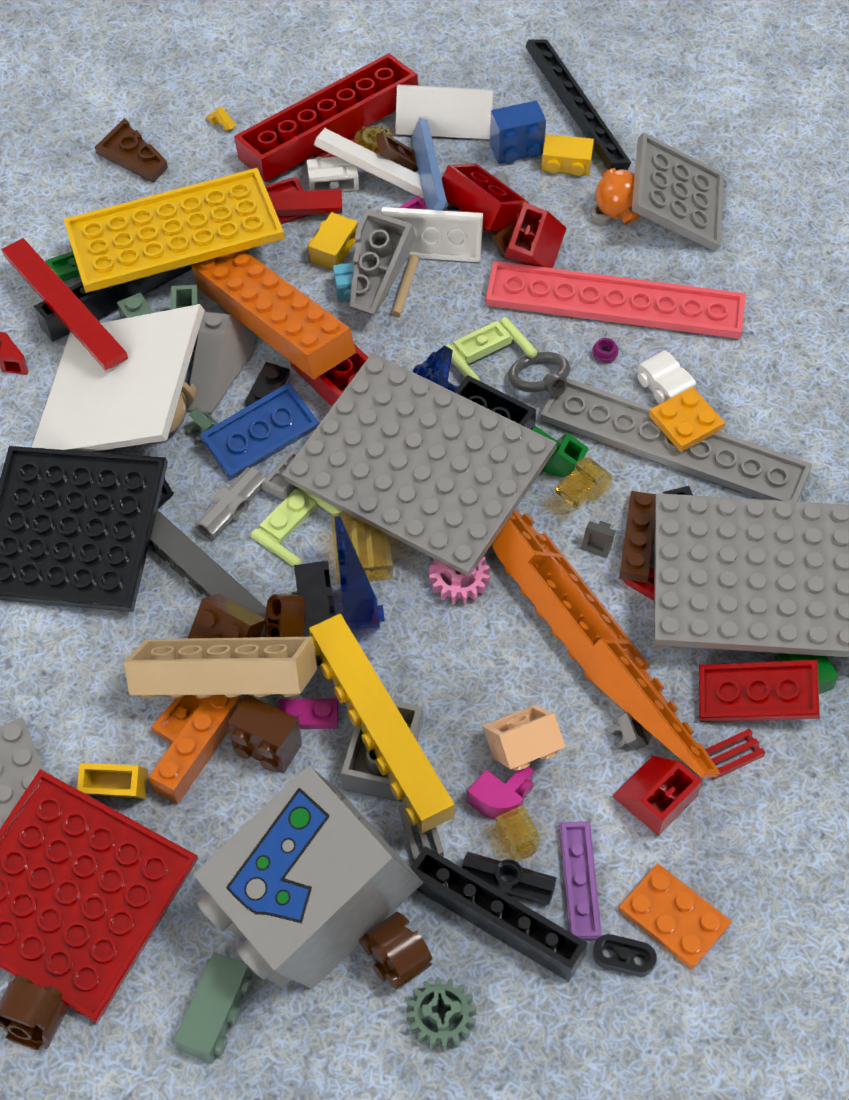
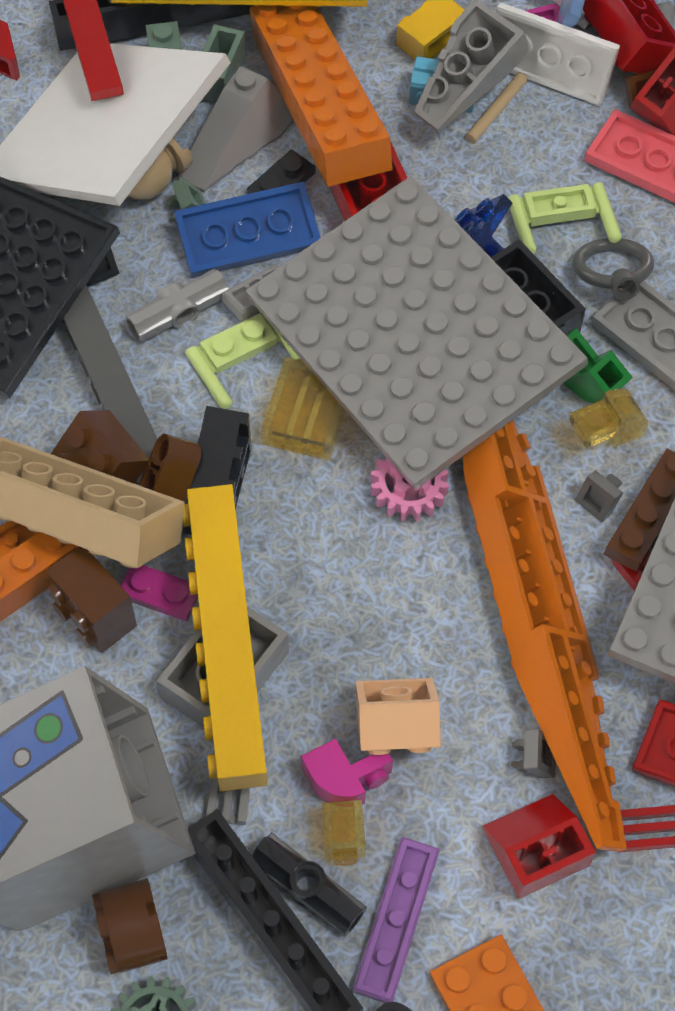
camera: 20 degrees right, 5 degrees up
(358, 597) = (270, 475): clear blue wedge -> none

